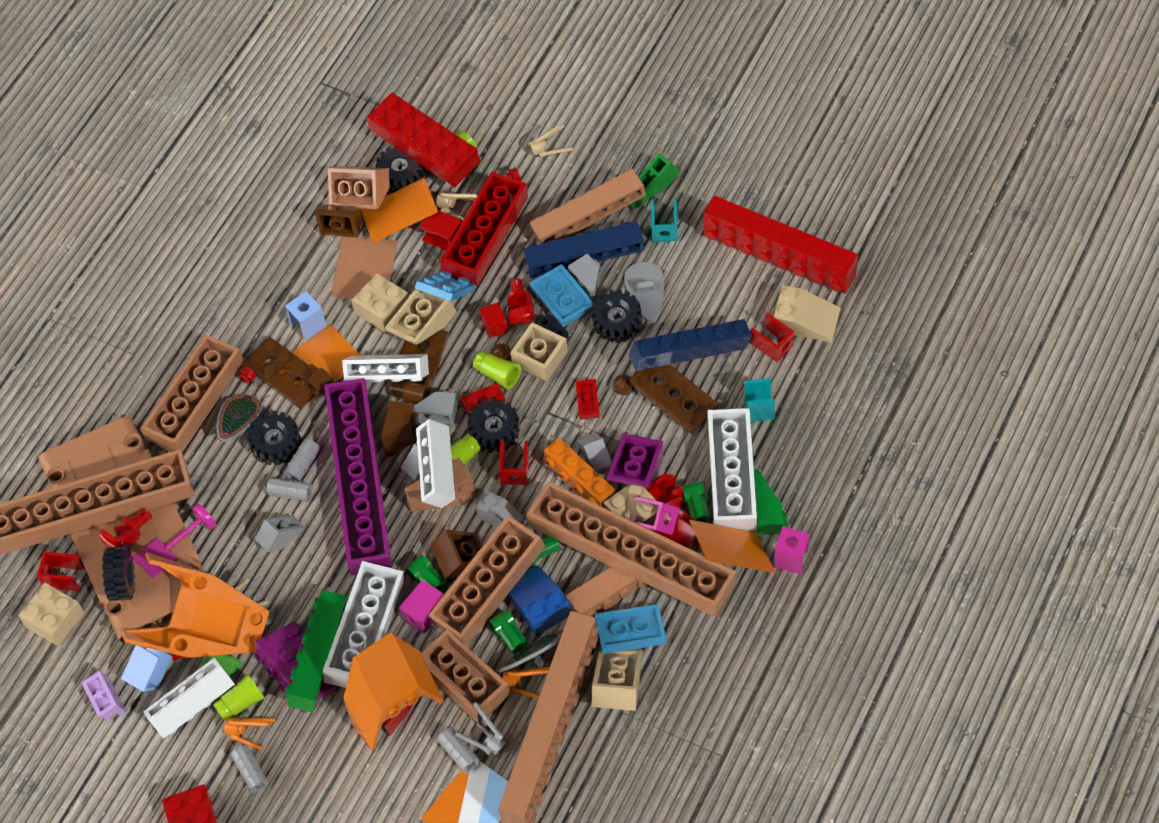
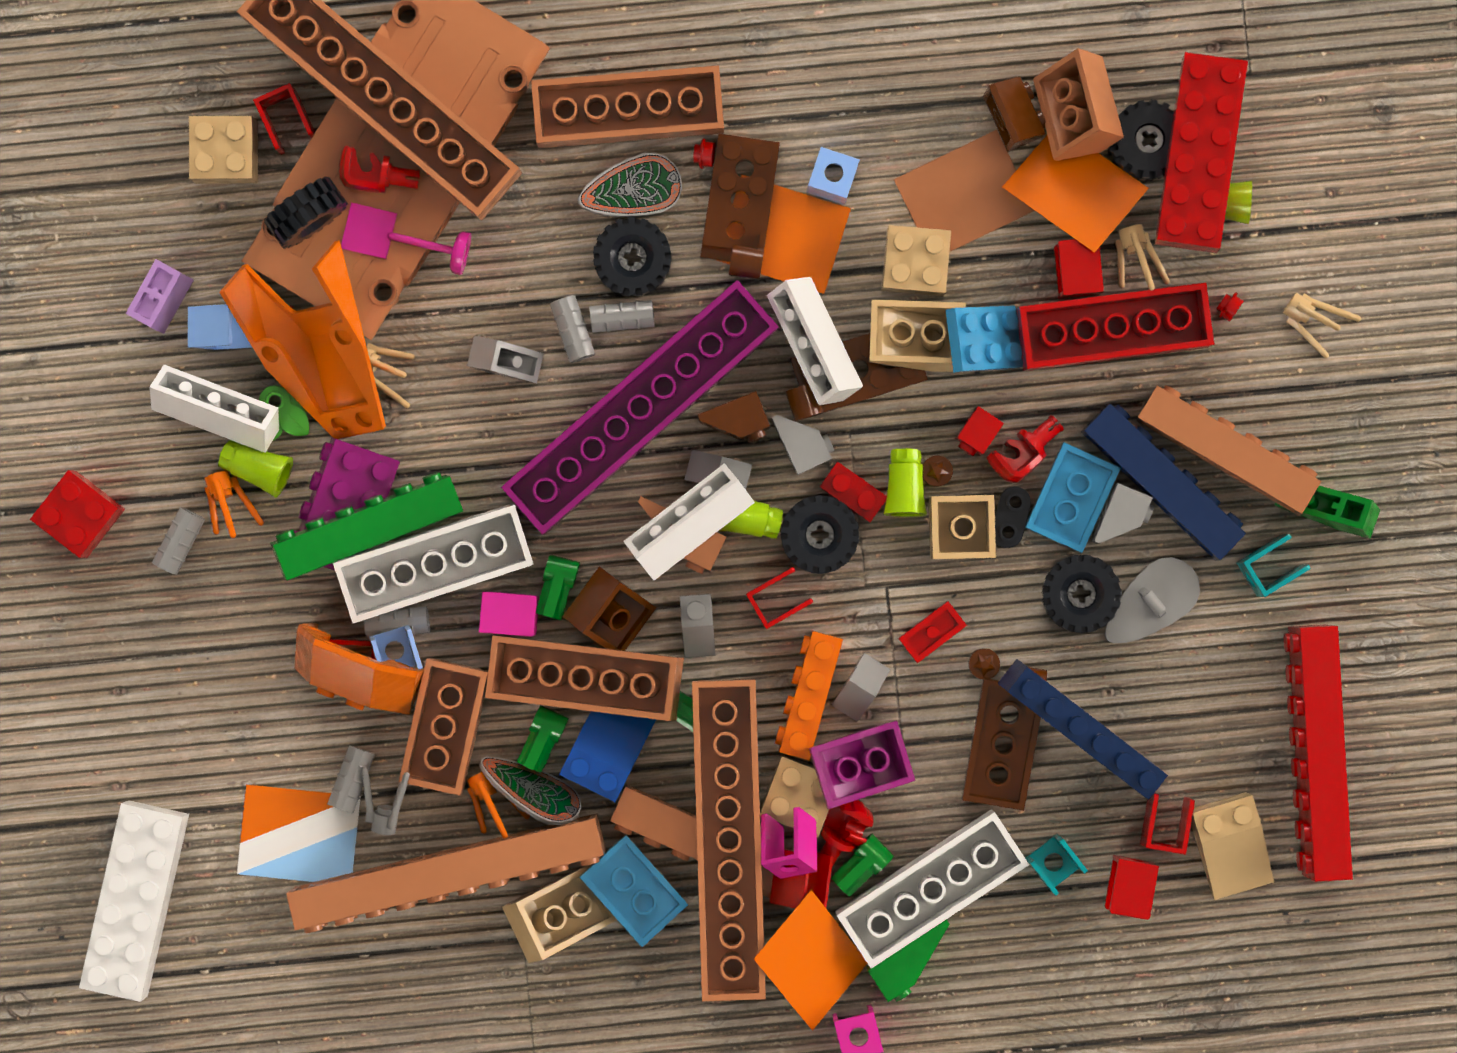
camera: 50 degrees right, 30 degrees up
(796, 372) = (1131, 887): none -> red piece

